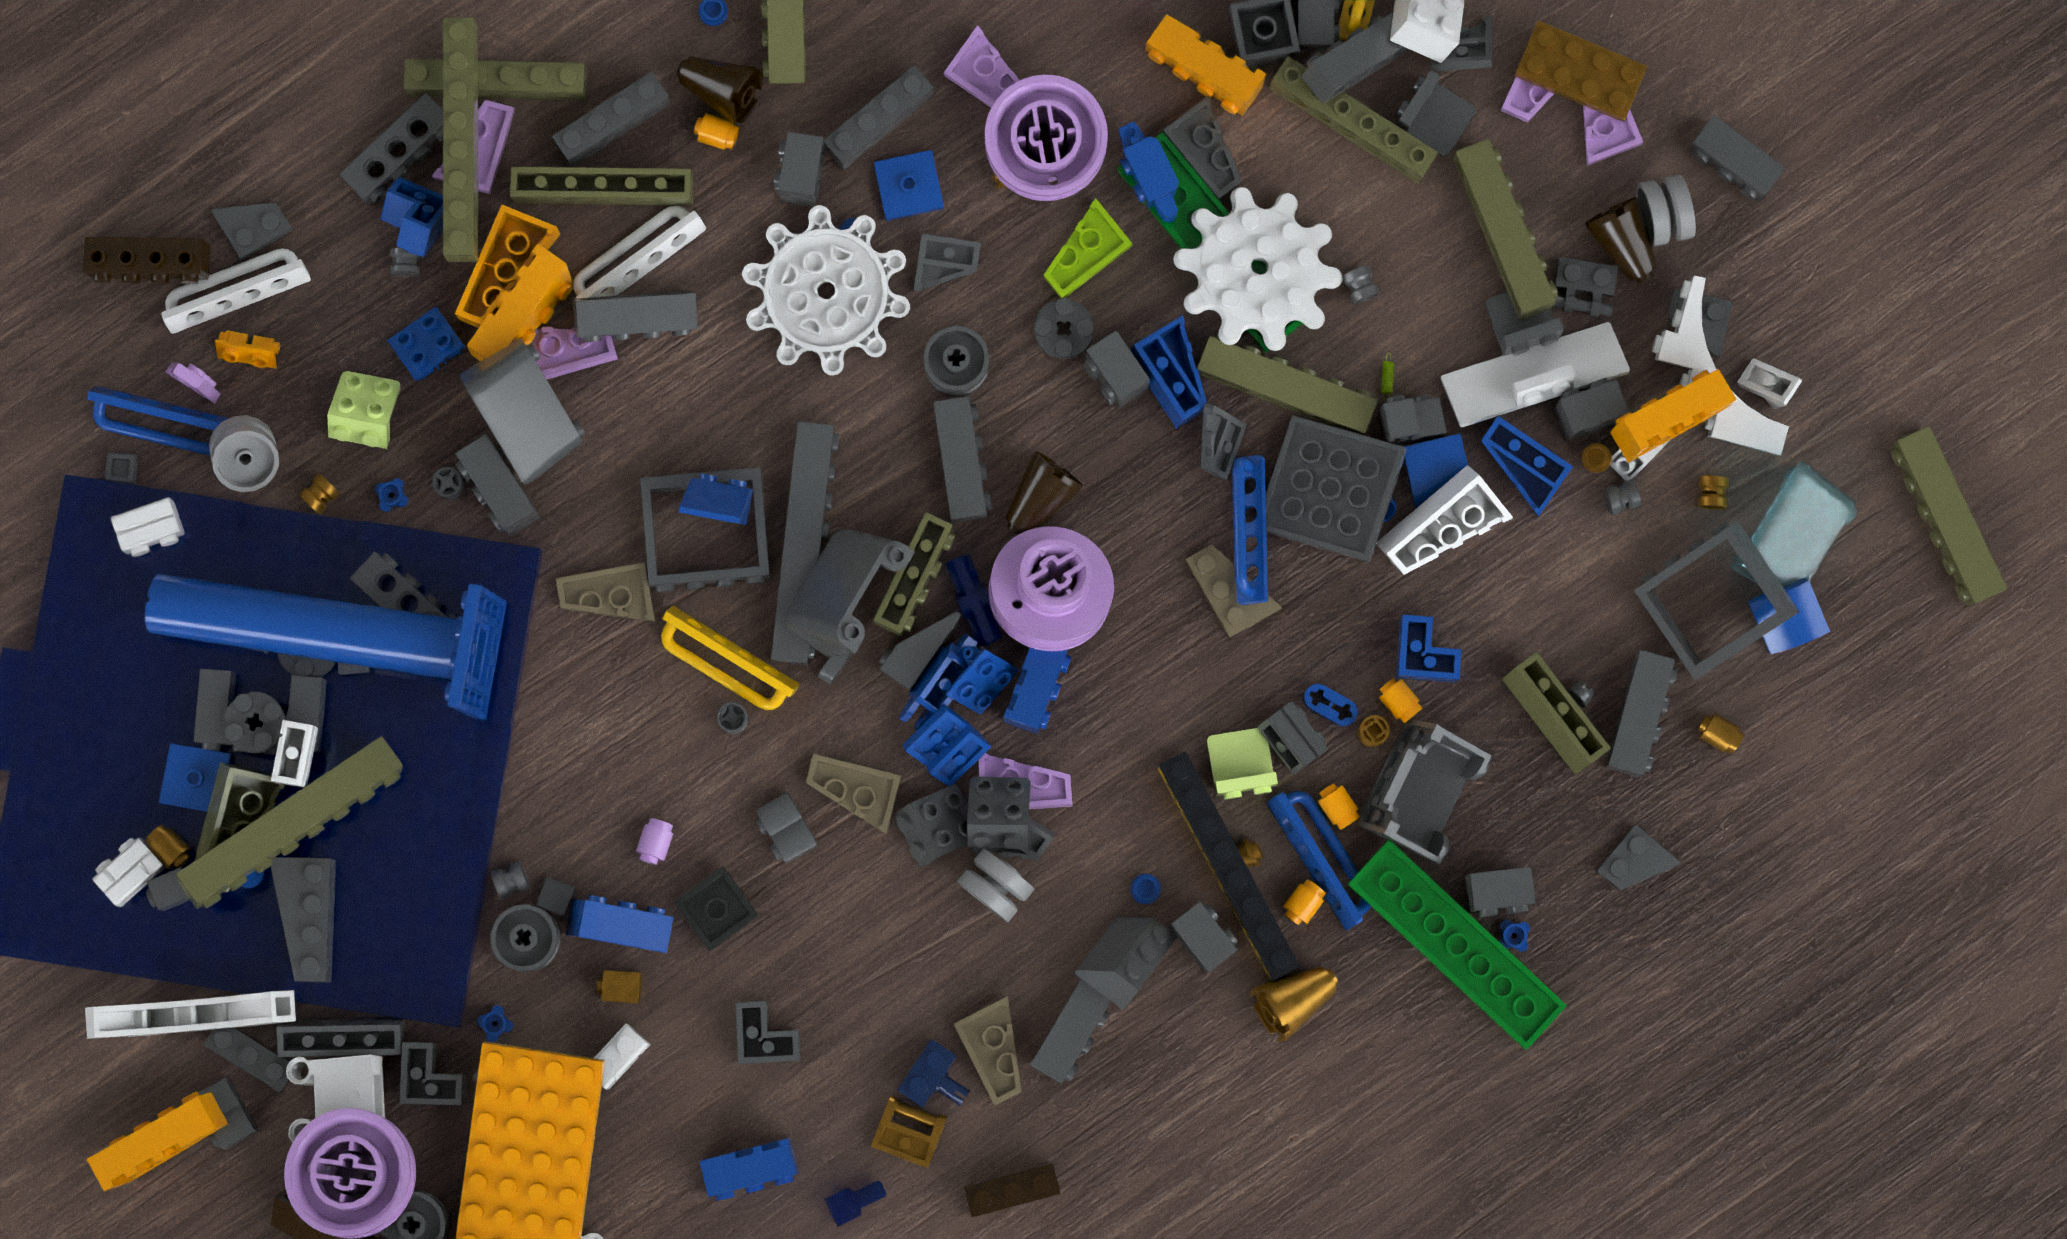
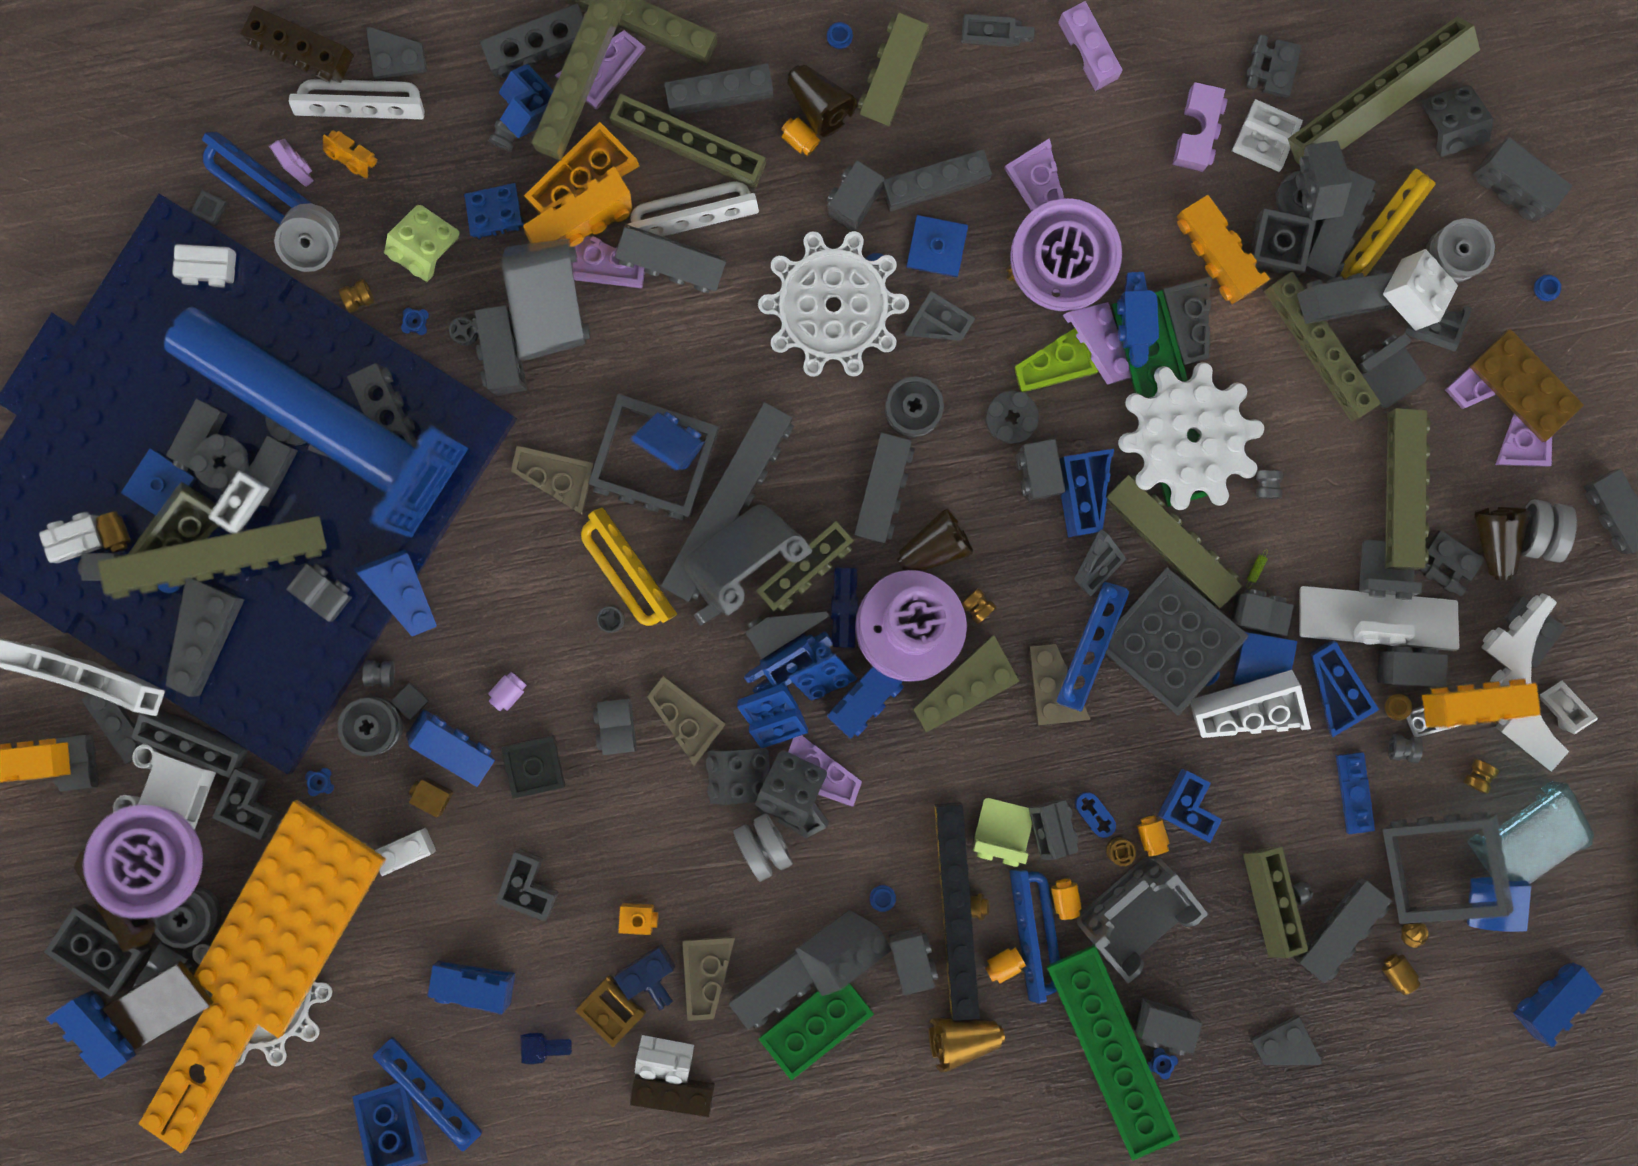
camera: 30 degrees right, 5 degrees up
(414, 816) = (320, 592): none -> dark grey brick
(498, 780) = (399, 589): none -> blue wedge
(896, 1021) = (637, 919): none -> light orange brick
(987, 1156) = (664, 1060): none -> white brick
(1117, 203) = (1100, 334): none -> lavender wing
(1119, 542) = (982, 610): none -> pearl gold wheel
(1133, 1054) = (814, 1028): none -> green plate
(1140, 622) = (969, 684): none -> olive wedge
(1591, 566) = (1355, 793): none -> blue plate
(1716, 685) = (1414, 934): none -> pearl gold plate
(1895, 692) = (1558, 1003): none -> blue wedge

